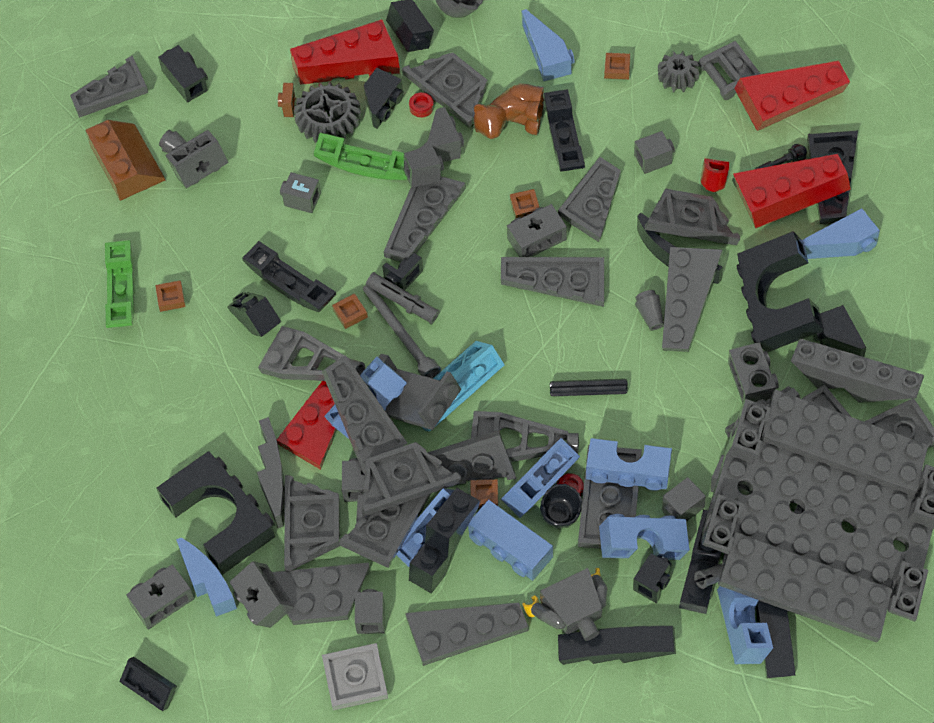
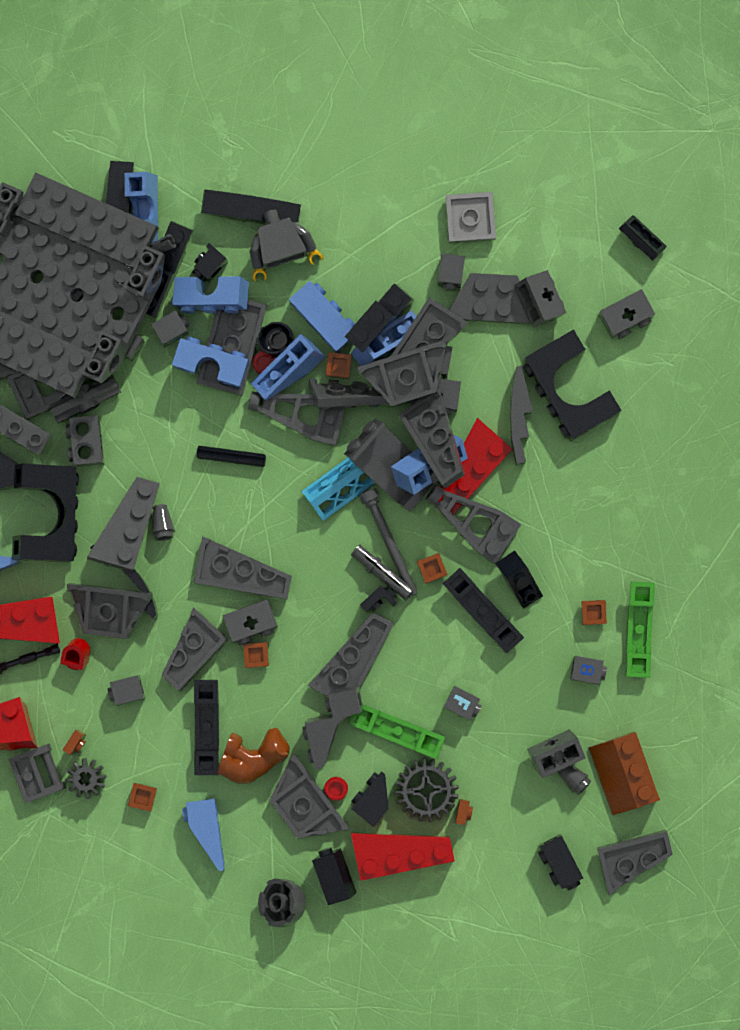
camera: 170 degrees left, 25 degrees up
(171, 241) = (588, 670): none -> dark grey brick
(206, 578) = (586, 325): medium blue slope -> none
(310, 522) = (492, 363): dark grey wing -> none
(459, 630) = (379, 246): dark grey wing -> none
(697, 99) = (75, 742): none -> dark orange plate

